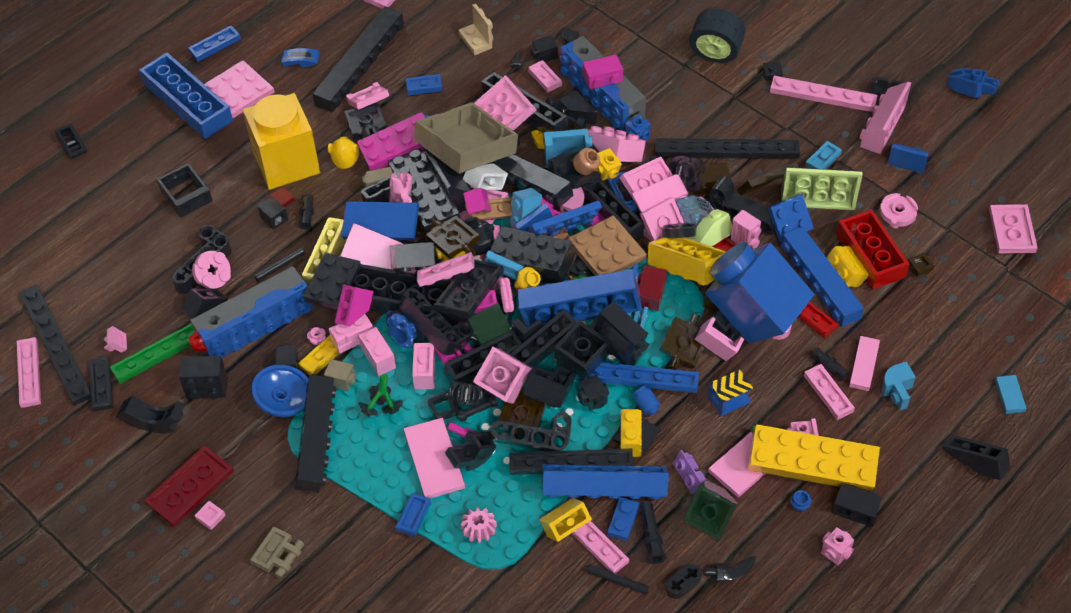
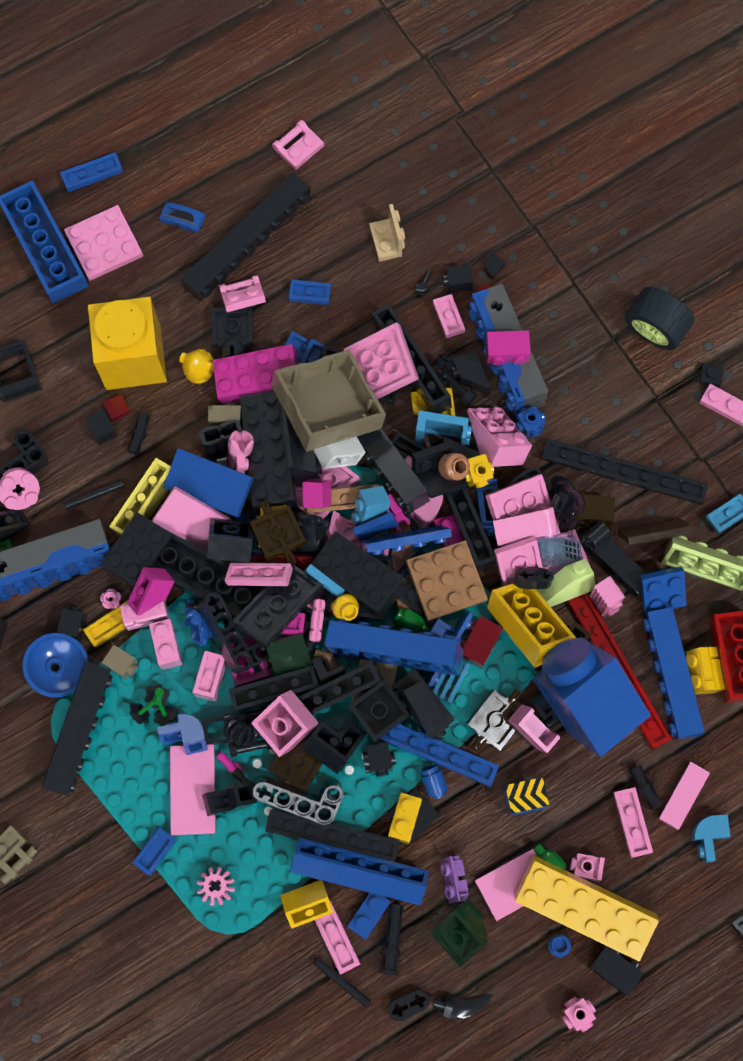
camera: 15 degrees right, 20 degrees up
(416, 410) = (186, 730): none -> brick

